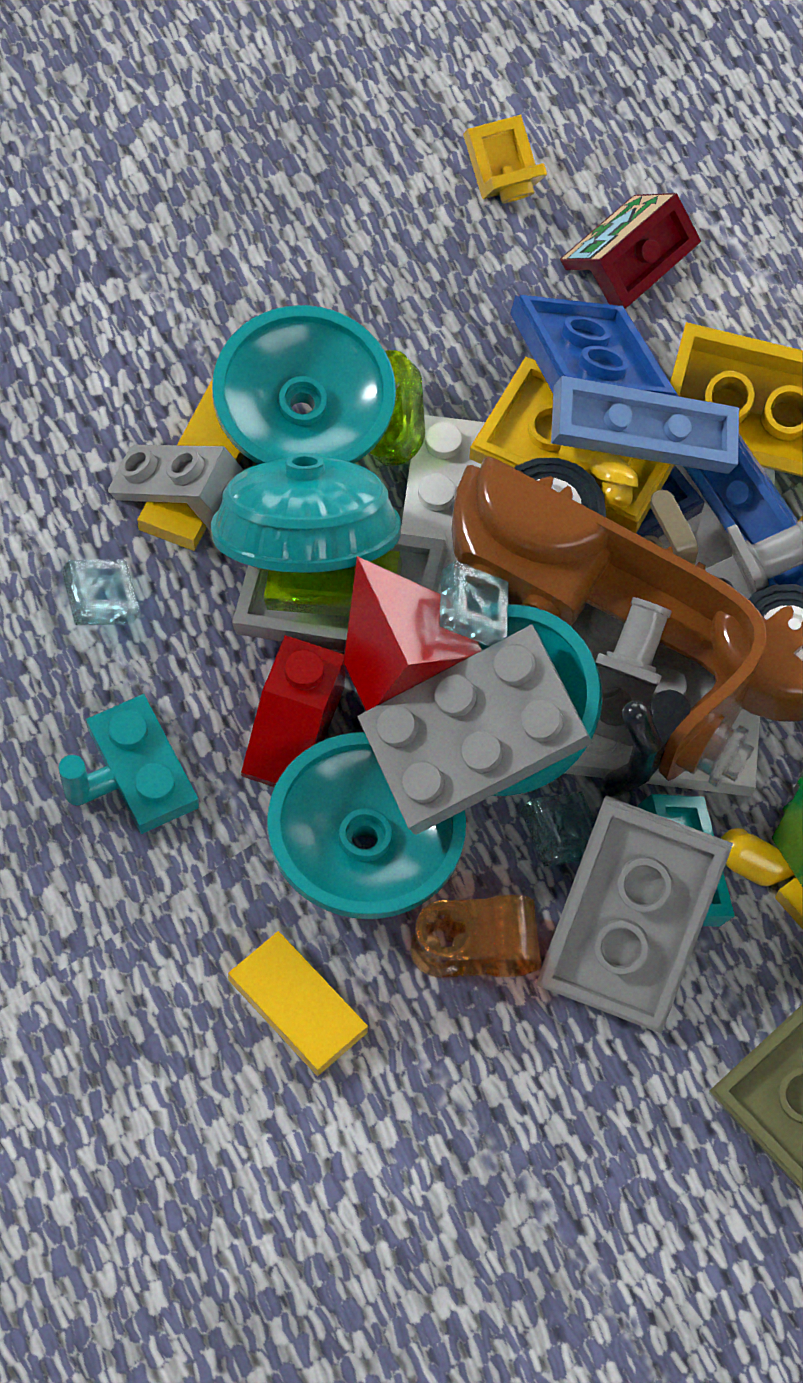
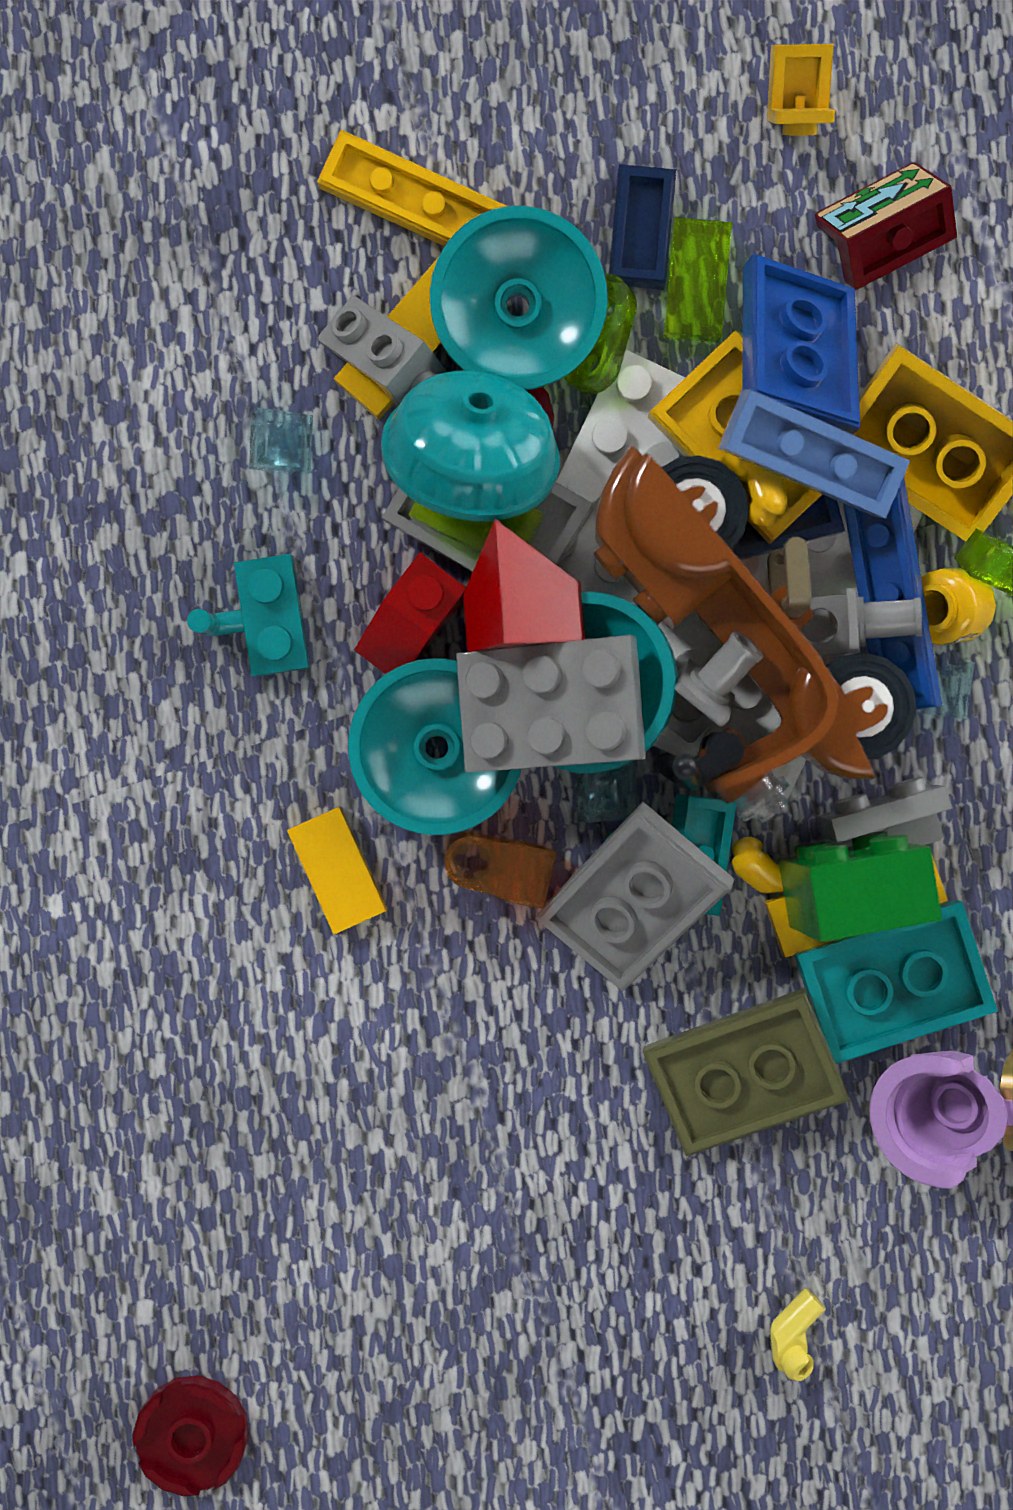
camera: 25 degrees right, 25 degrees up
(146, 343) = (399, 189): none -> yellow tile
(399, 308) = (642, 225): none -> dark blue tile
(469, 341) = (697, 279): none -> clear neon green tile
(473, 603) = (586, 595): clear light blue tile -> none

